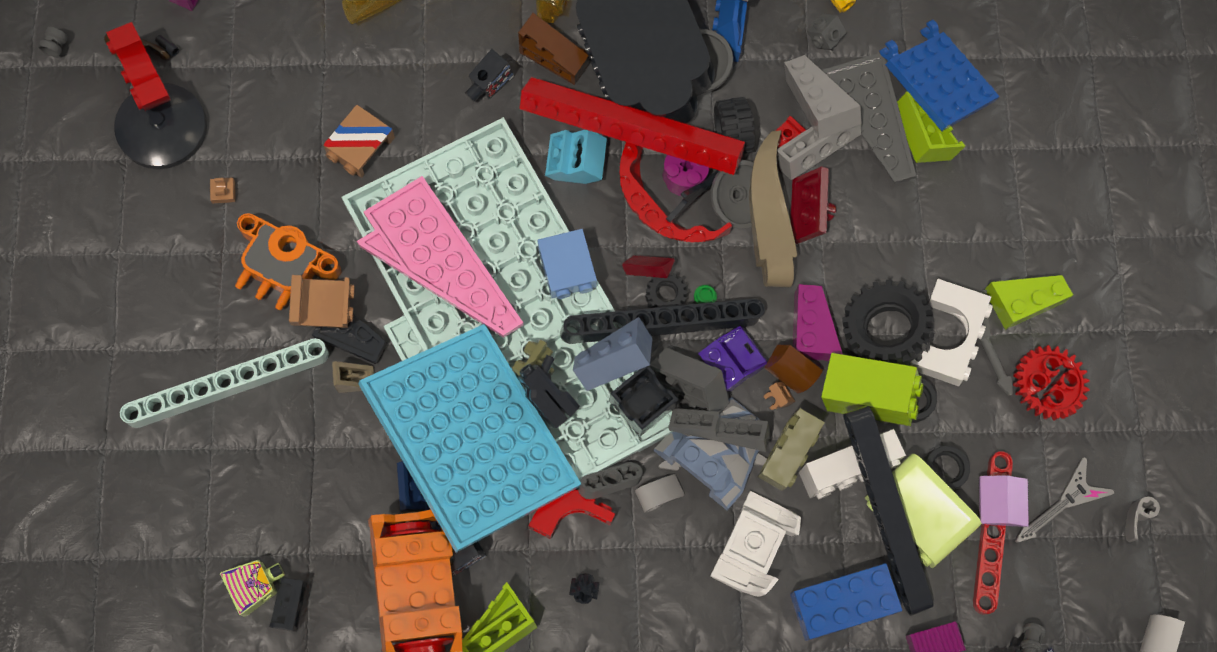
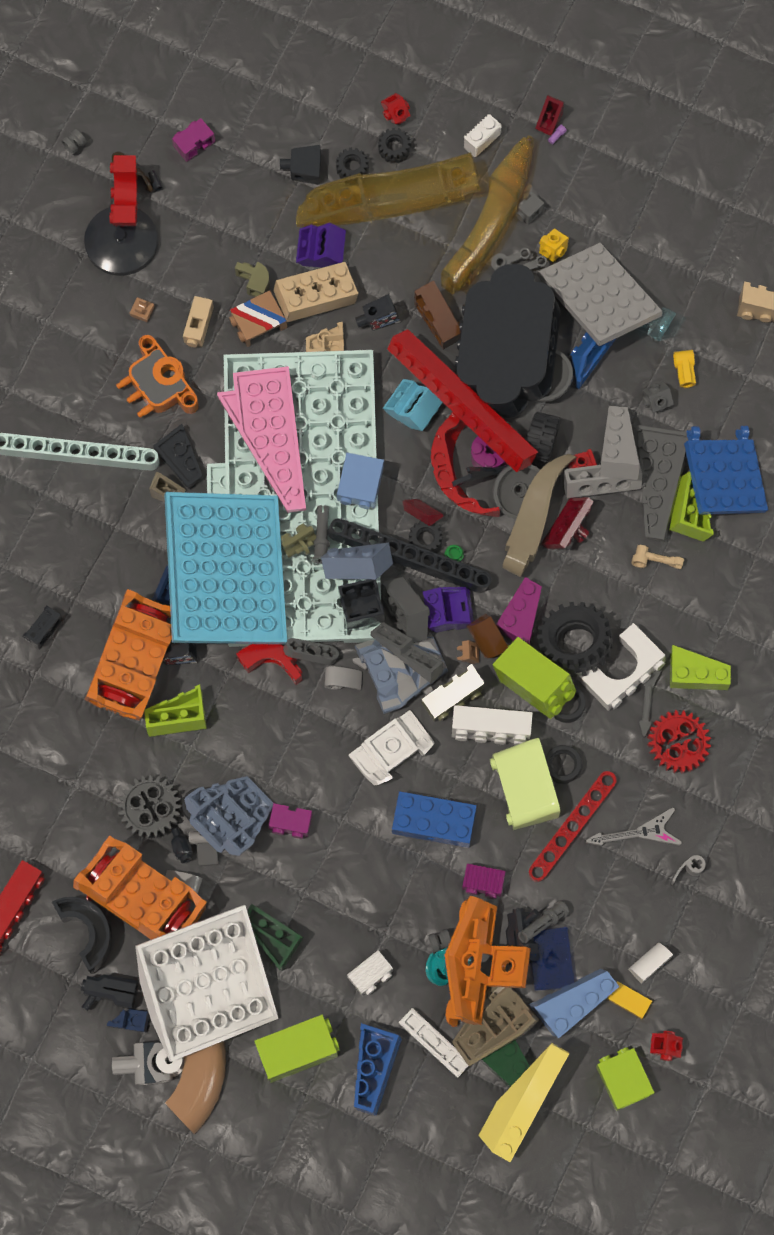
camera: 35 degrees right, 0 degrees up
(251, 585) = (24, 601): torso -> none
(293, 175) = (198, 321): none -> tan brick
(320, 302) = (170, 425): medium nougat panel -> none
(334, 96) = (258, 277): none -> olive brick
(373, 32) = (310, 245): none -> dark purple piece
(408, 83) = (315, 292): none -> tan brick
(445, 130) = (326, 340): none -> tan slope
(545, 395) = (292, 553): black piece -> none
(559, 351) = (321, 543): none -> dark grey pin
(584, 588) = (253, 717): black gear -> none
(888, 510) = (496, 767): black beam -> none
(901, 204) = (642, 556): none -> tan brick
(1003, 501) = (591, 807): lavender slope -> none

